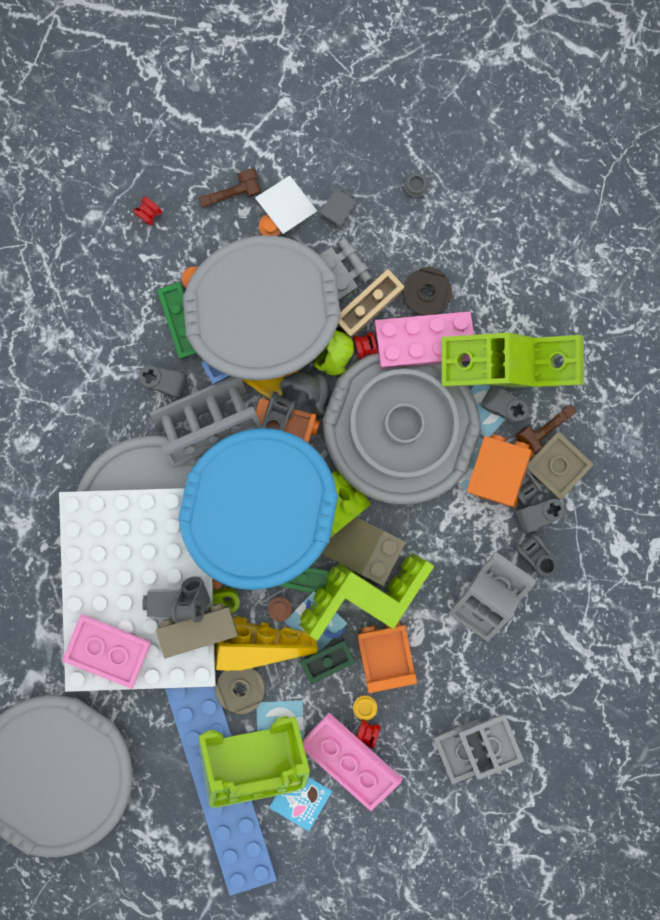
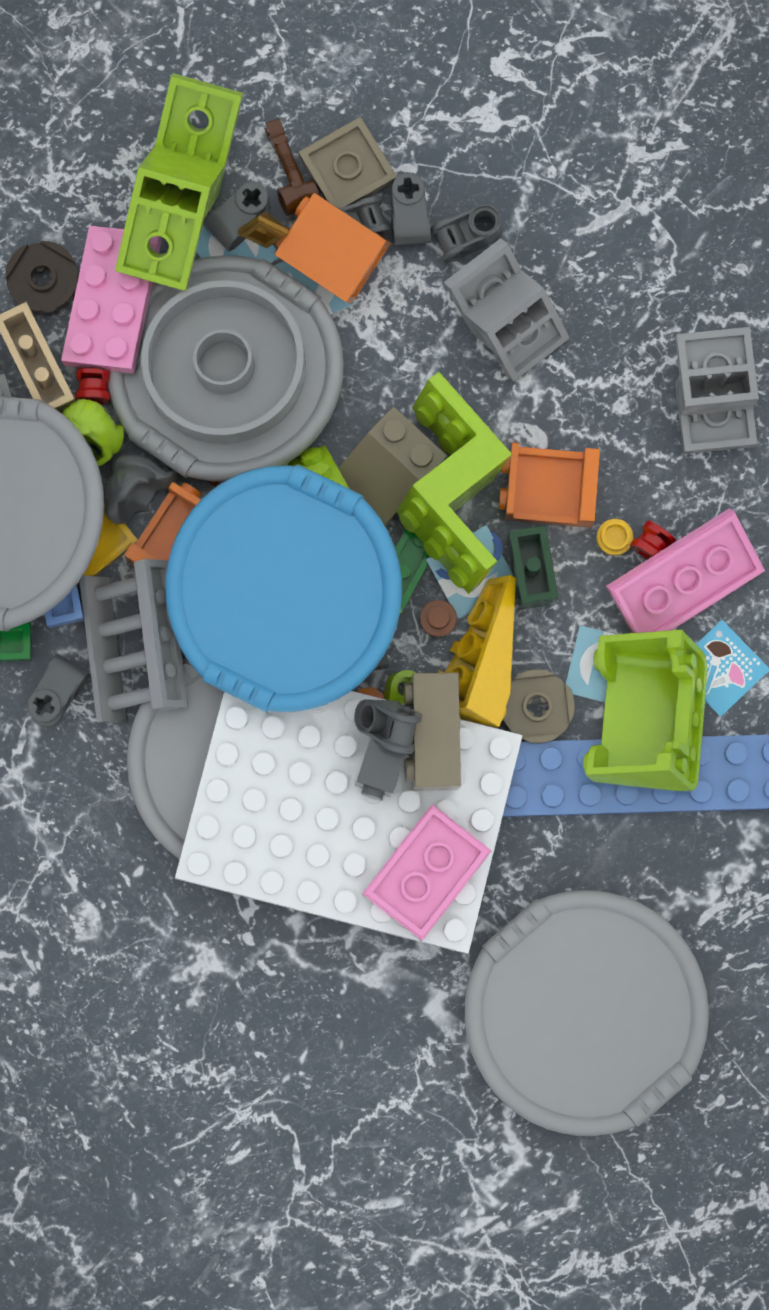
camera: 80 degrees left, 5 degrees down
(279, 413) = (150, 532): dark grey piece -> none
(498, 424) = (263, 230): none -> pearl gold slope

